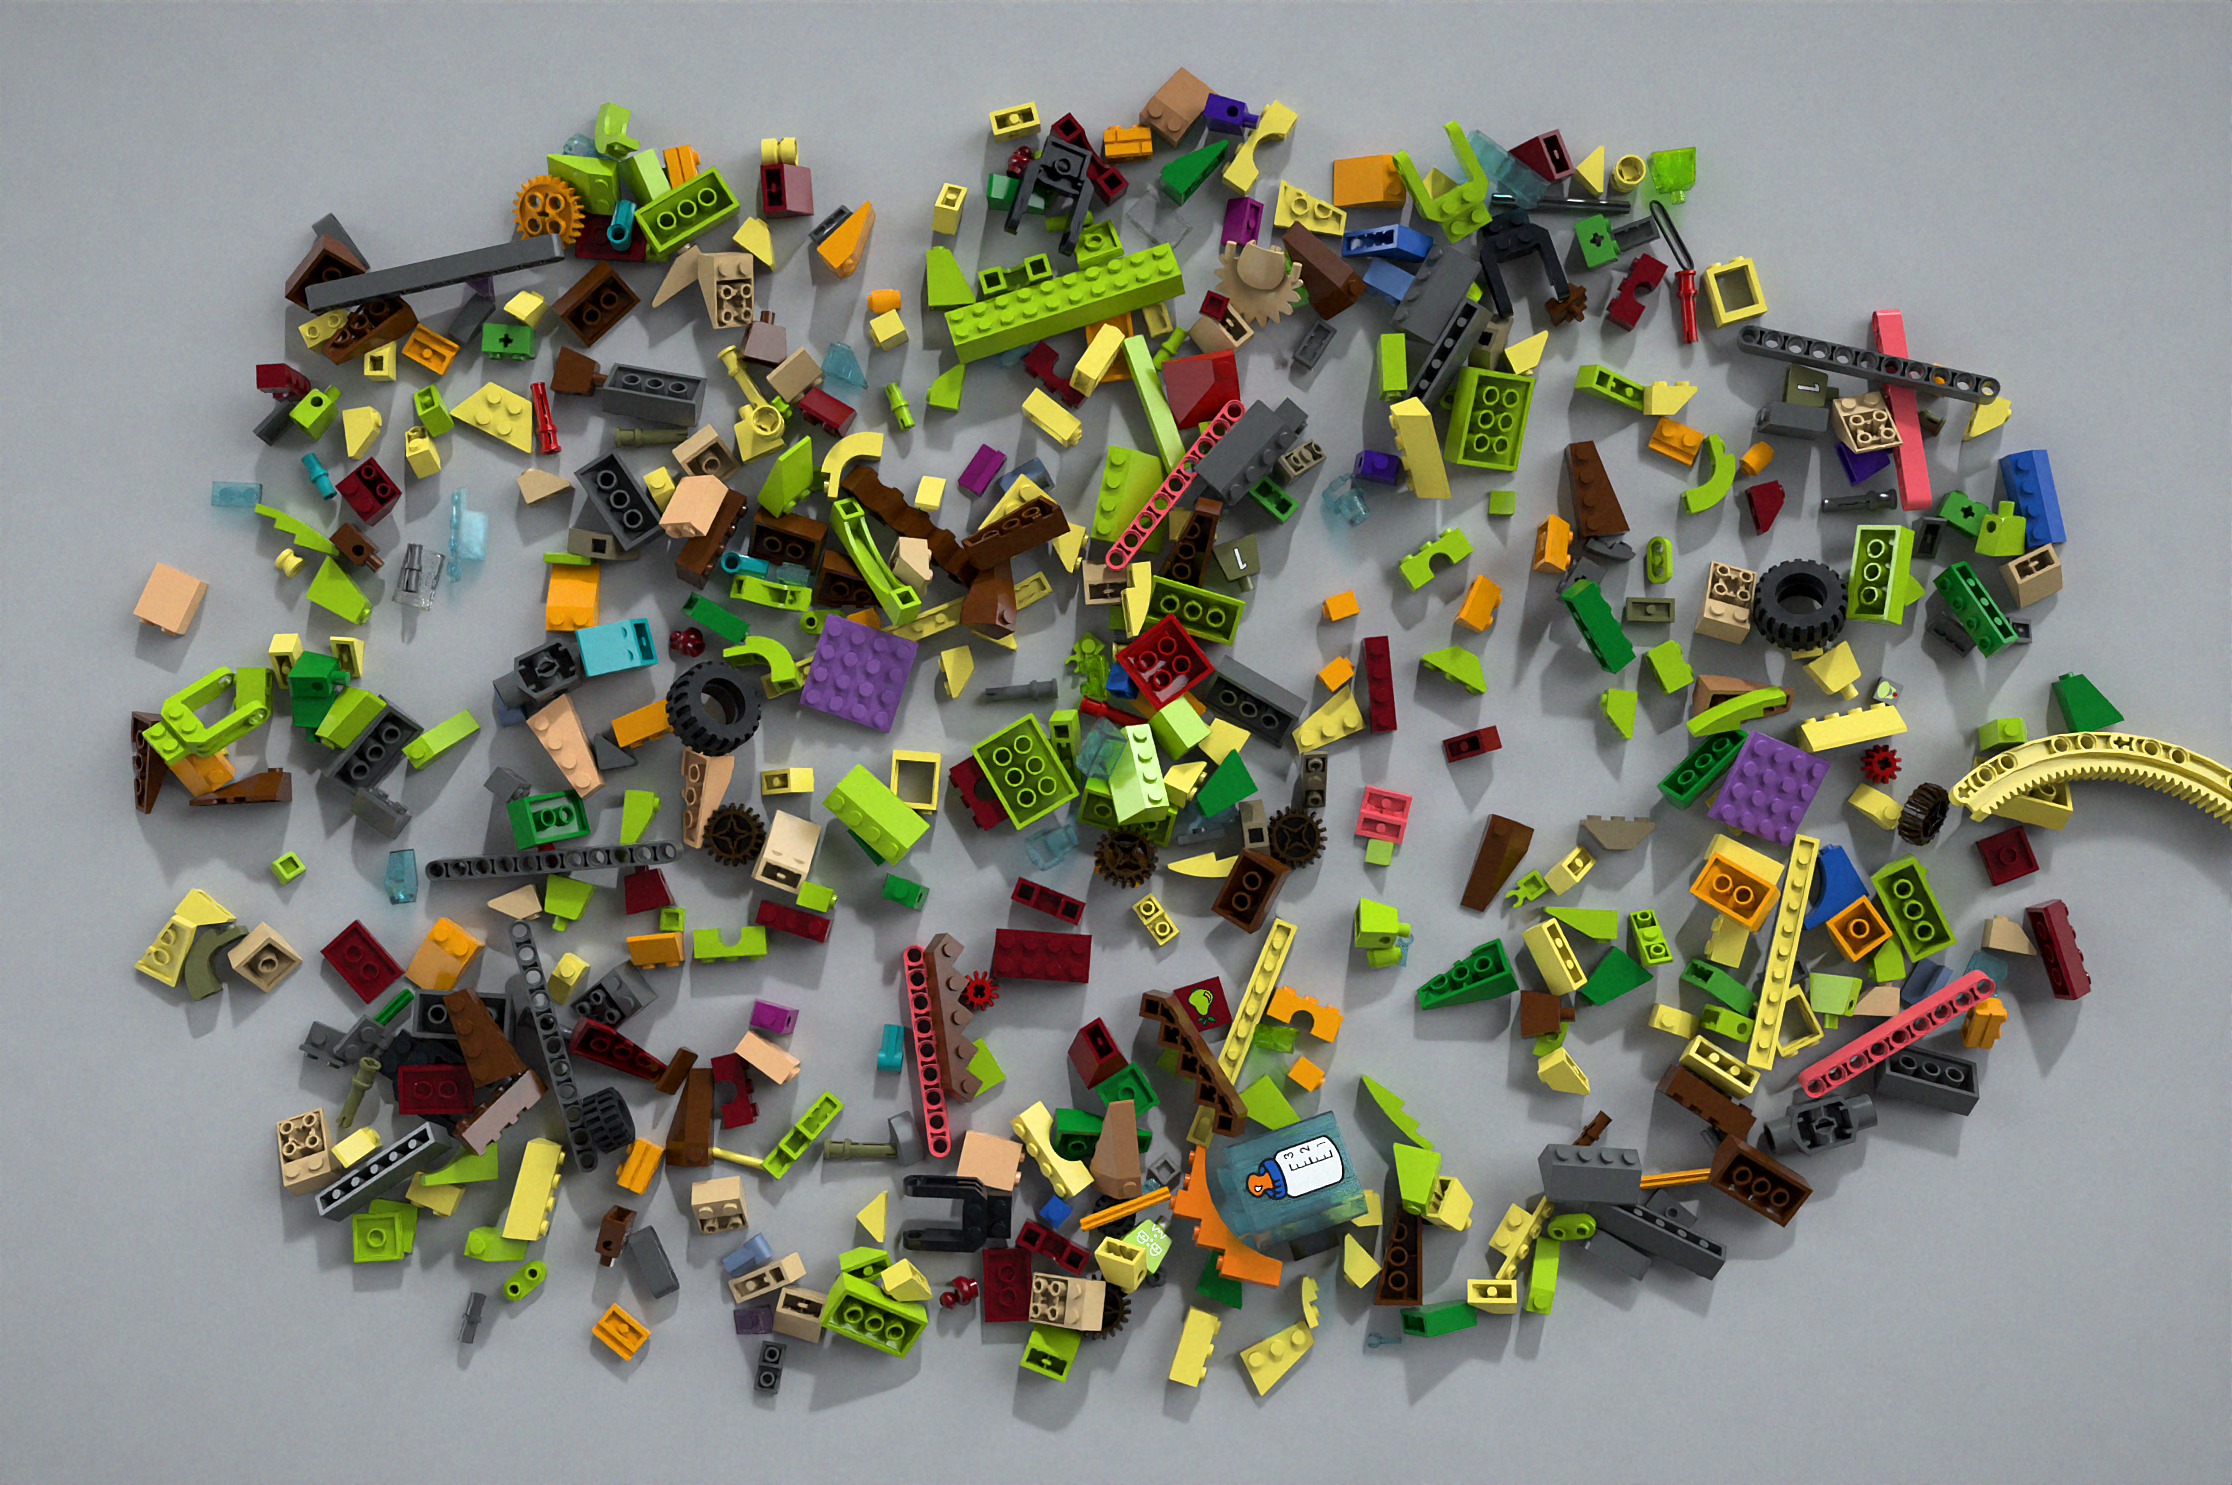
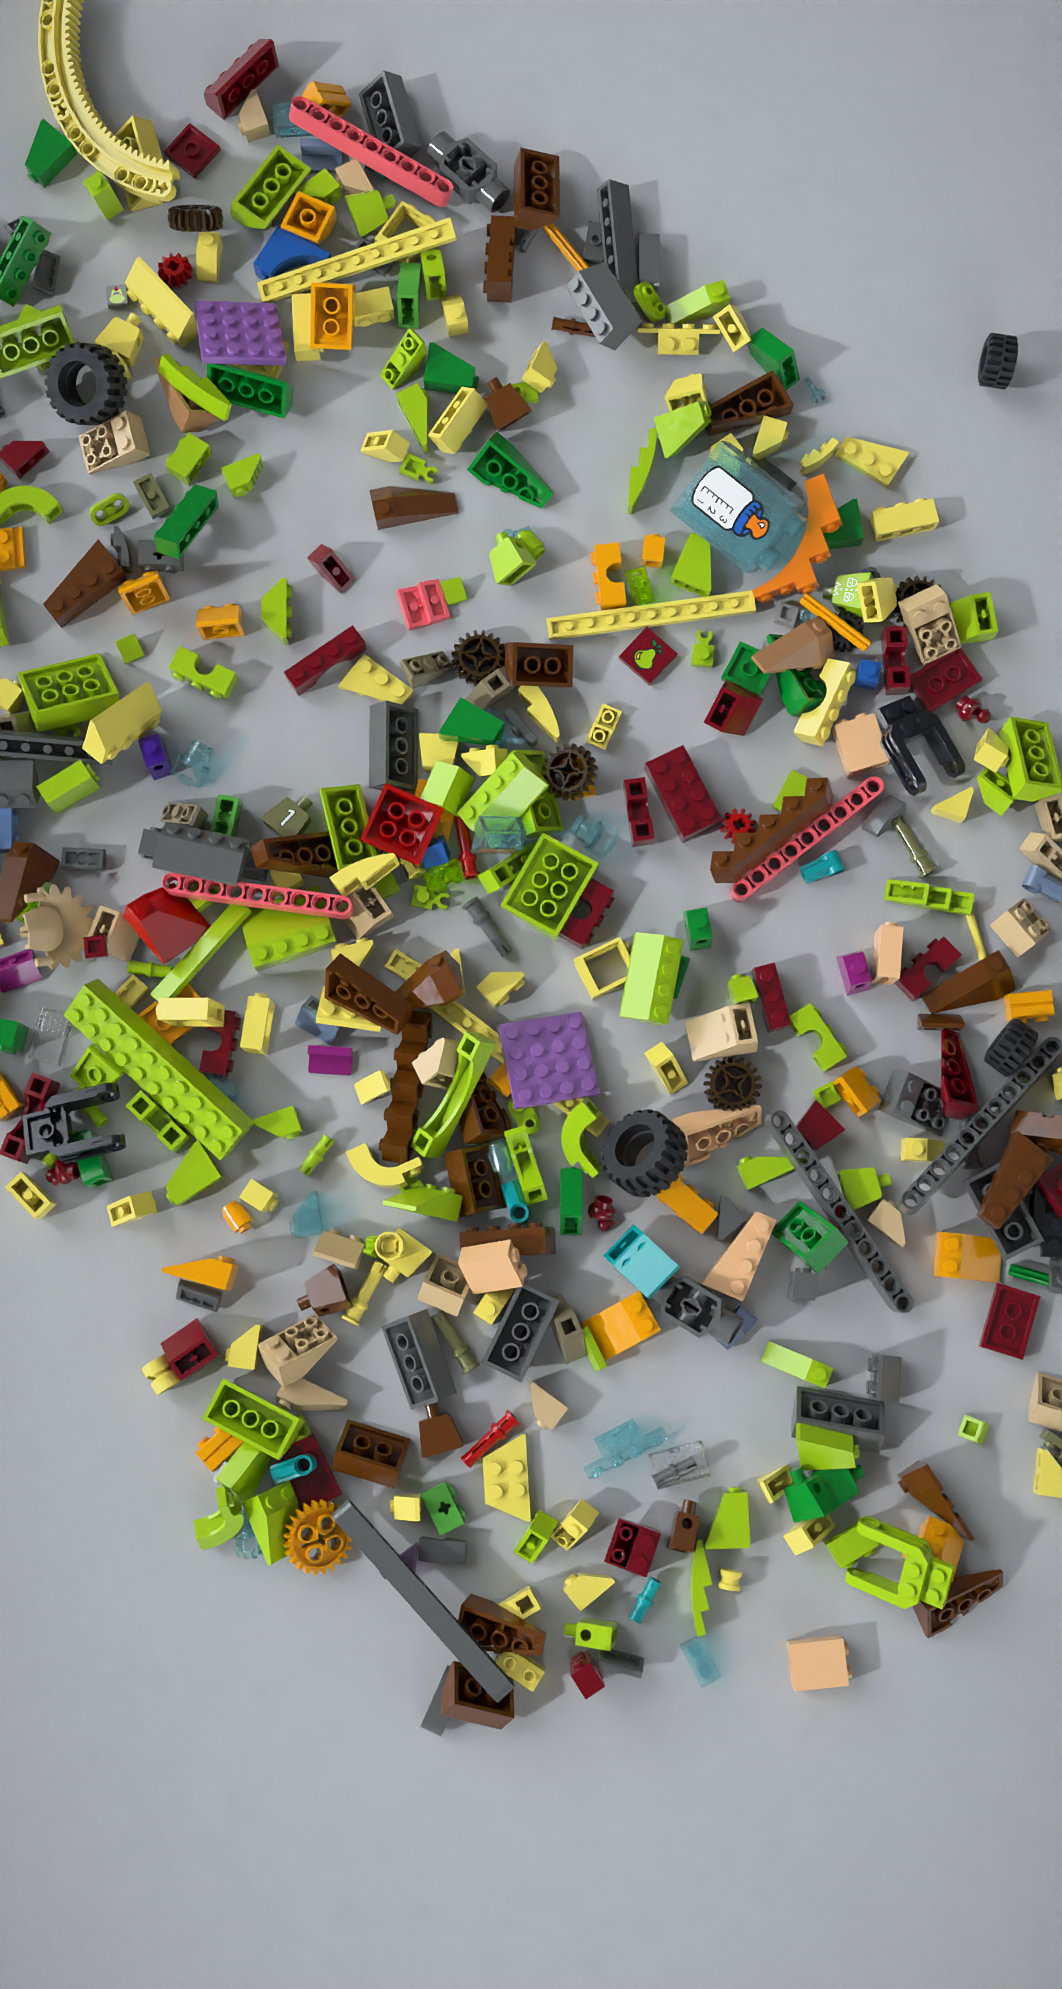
camera: 120 degrees left, 5 degrees down
(401, 877) = (924, 1330): clear light blue slope -> none
(430, 349) = (487, 1569): light orange plate -> none
(827, 411) = (353, 1208): dark red slope -> none
(1196, 1062) = (693, 631): reddish brown brick -> none
(1336, 673) = (335, 697): light orange brick -> none
(1340, 606) = (281, 723): light orange brick -> none
(1617, 833) = (336, 427): dark tan slope -> none
(1719, 1067) = (469, 261): light yellow brick -> none

